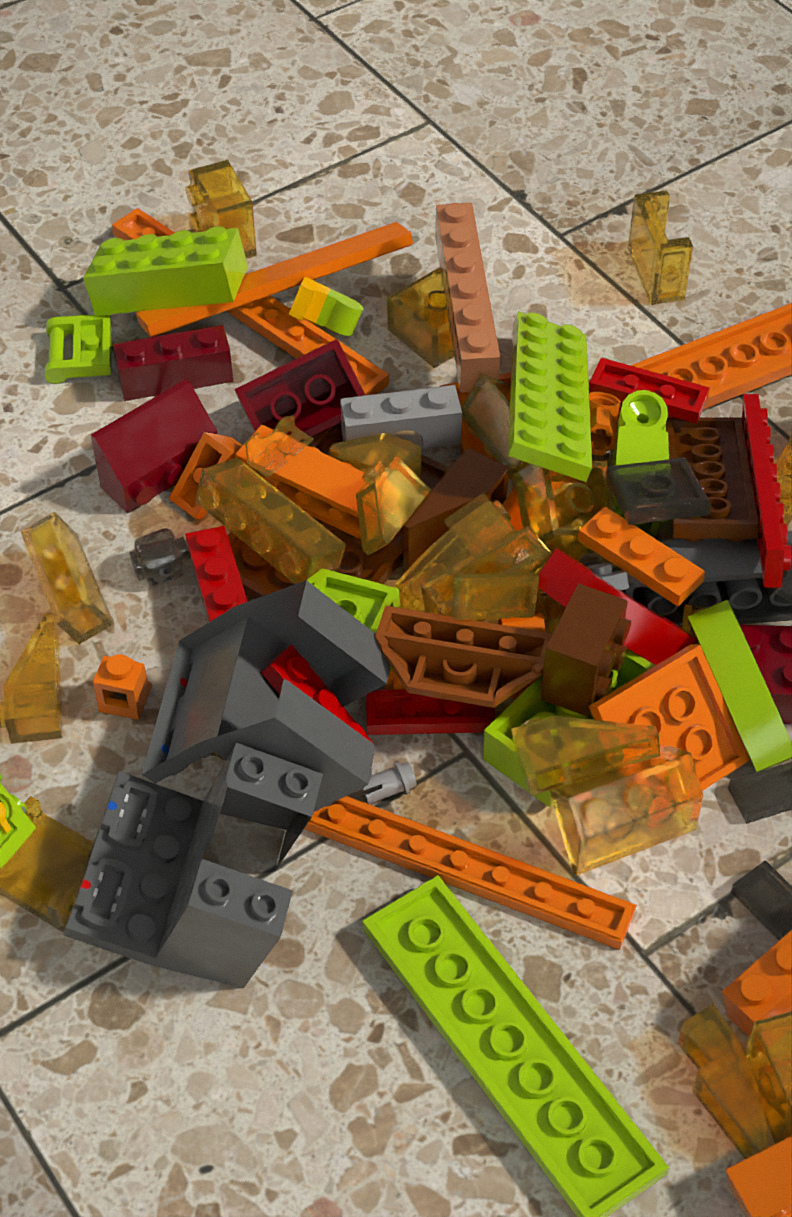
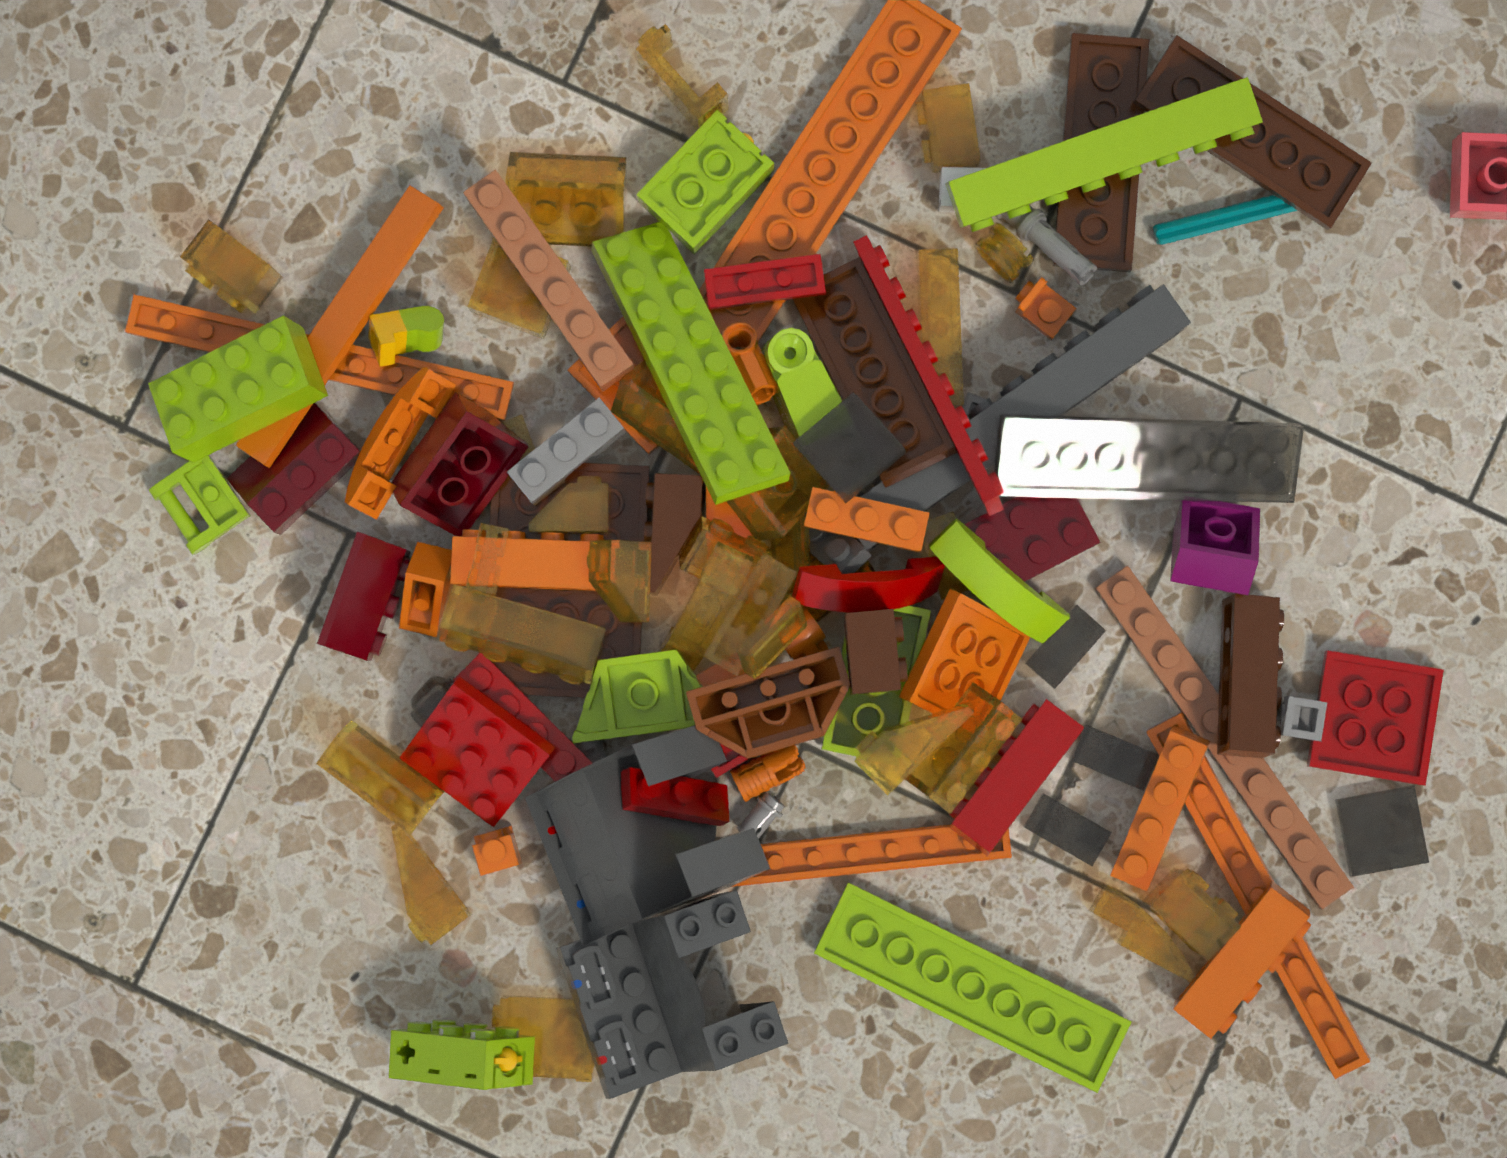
camera: 25 degrees left, 35 degrees up
(164, 589) = (476, 752): none -> red plate
(224, 375) = (391, 437): none -> orange slope
(410, 746) = (767, 771): none -> orange hinge
(525, 285) = (570, 195): none -> clear yellow slope
(638, 315) = (705, 181): none -> lime piece
(666, 863) = (1016, 777): none -> red brick
(694, 950) = (1067, 829): none -> clear smoke tile

